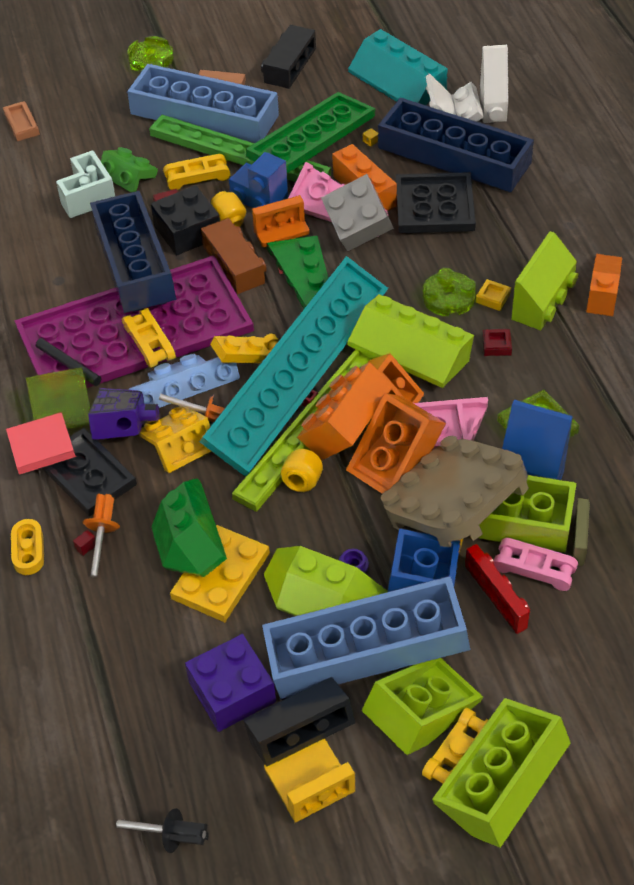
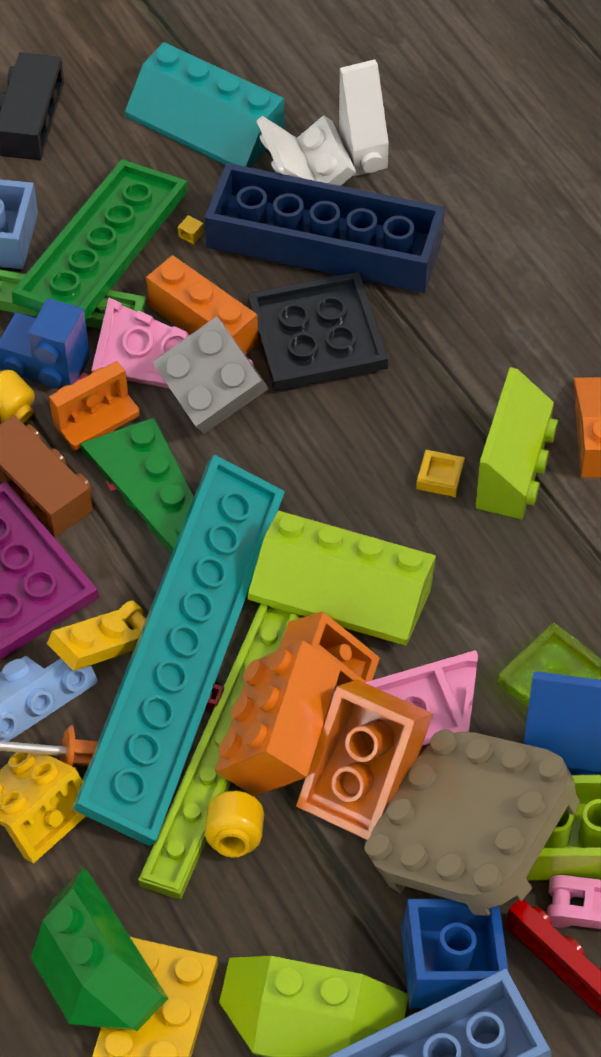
camera: 15 degrees left, 5 degrees up
(357, 557) = (347, 948): dark purple plate -> none
(449, 281) = (379, 462): clear neon green plate -> none
(497, 342) = (465, 552): dark red tile -> none

